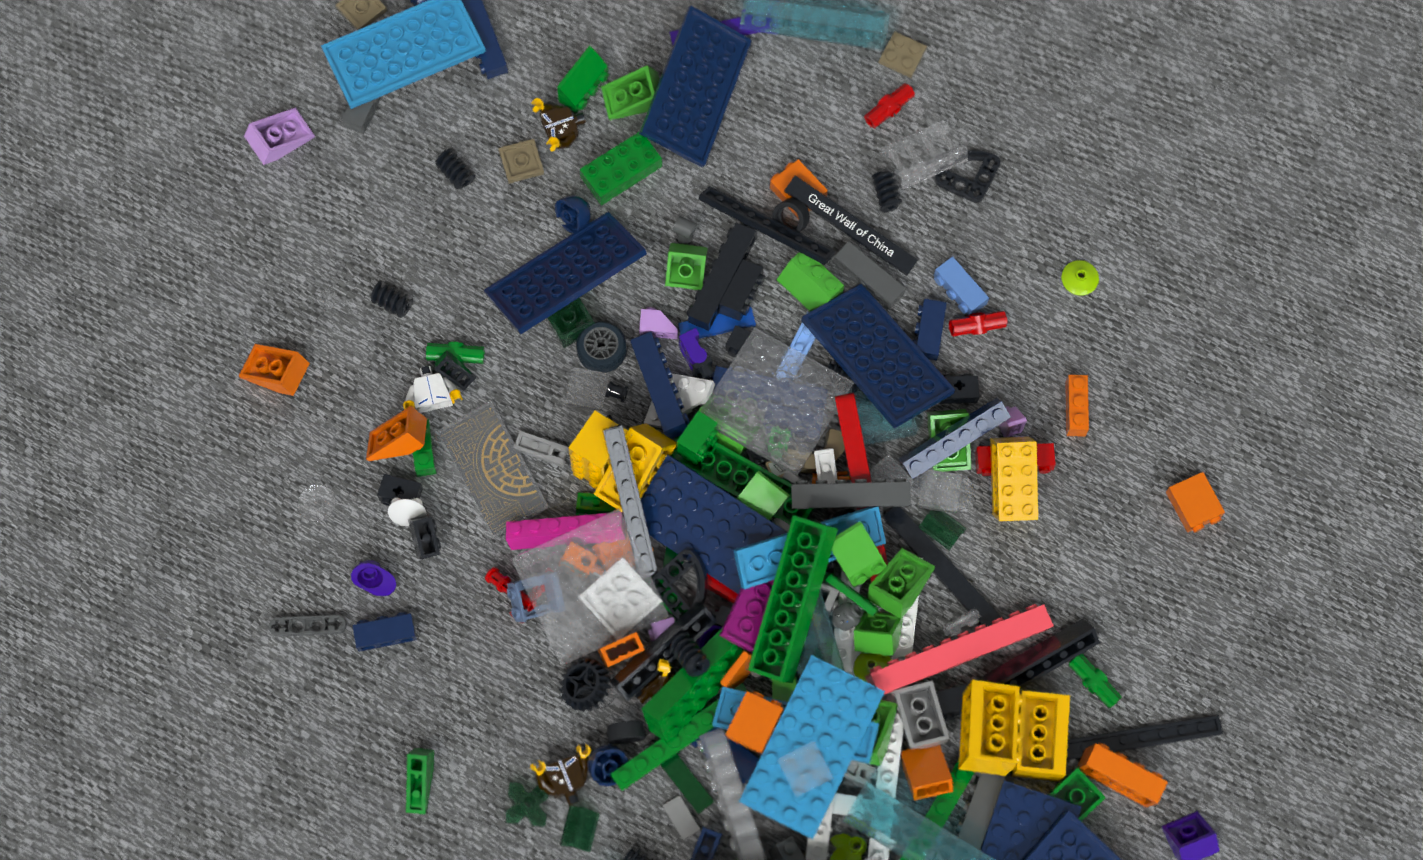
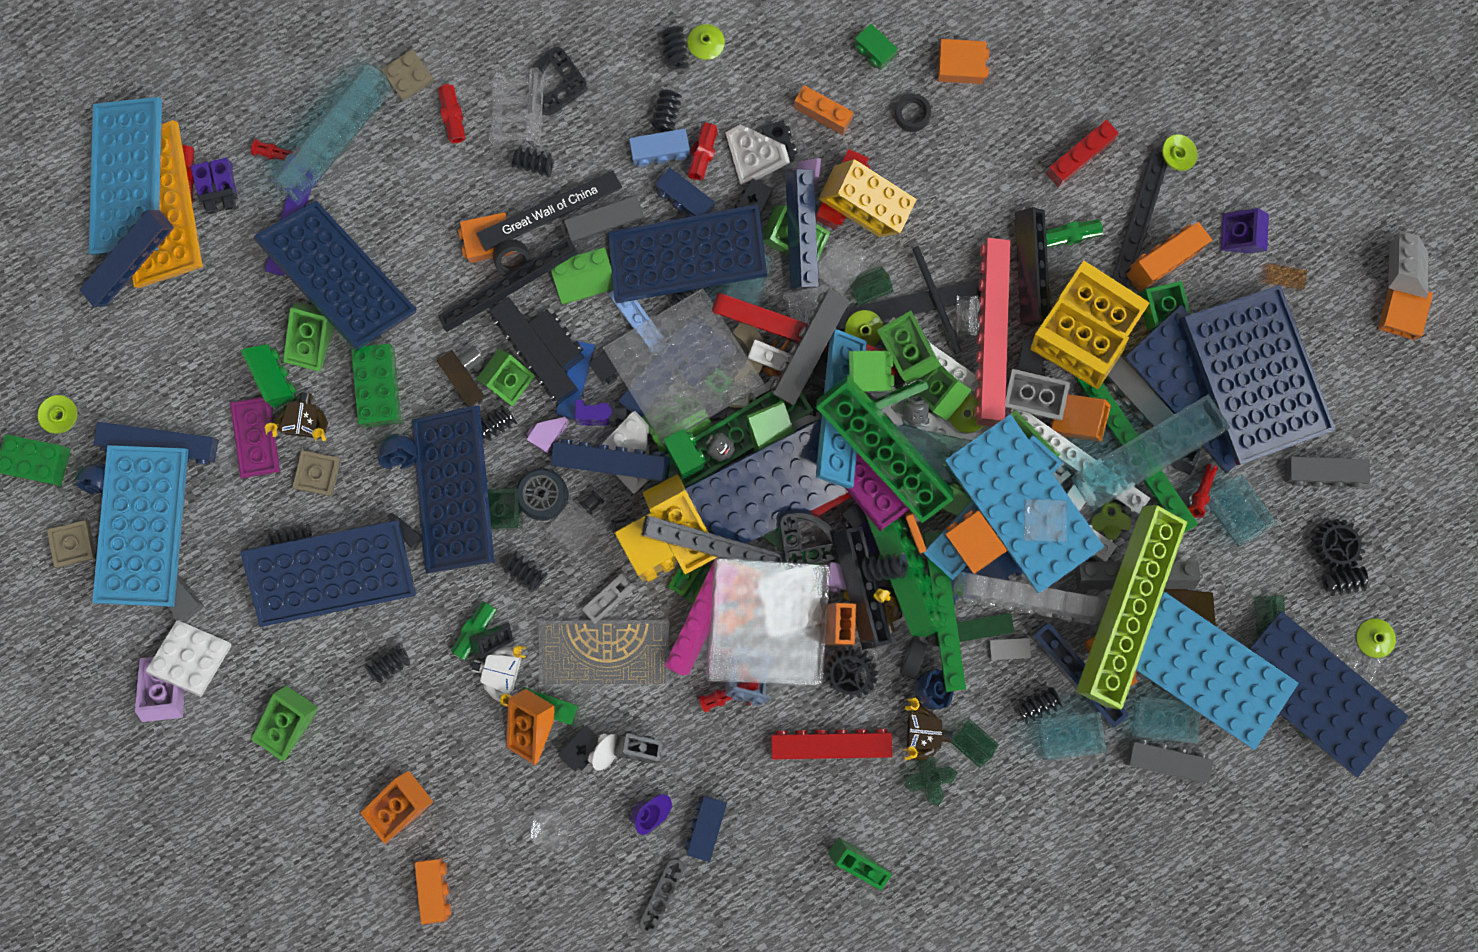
camera: 60 degrees left, 10 degrees up
(218, 433) = (432, 890): none -> orange brick
(299, 244) = (284, 722): none -> bright green slope
(314, 143) = (188, 658): none -> white plate
(442, 213) = (328, 572): none -> dark blue plate
(509, 258) = (410, 535): none -> black slope
(511, 702) = (831, 745): none -> red brick
(515, 104) = (255, 450): none -> magenta tile
(525, 366) = (523, 572): none -> black piece
(641, 278) = (496, 423): none -> black piece
(664, 232) = (460, 379): none -> dark brown tile
(721, 466) = (719, 447): none -> dark grey head
(906, 533) = (864, 319): none -> lime dish
(938, 619) = (951, 335): none -> black bar
(996, 274) = (665, 109): none -> black piece
(1001, 366) = (755, 153): none -> white plate
(1021, 381) = (780, 126): none -> black brick
(1056, 252) = (674, 47): none -> black piece
(1122, 469) = (912, 98): none -> black tyre
(1162, 420) = (875, 47): none -> green brick
(1174, 651) = (1082, 153): none -> red brick
(1237, 740) = (1184, 148): none -> lime dish

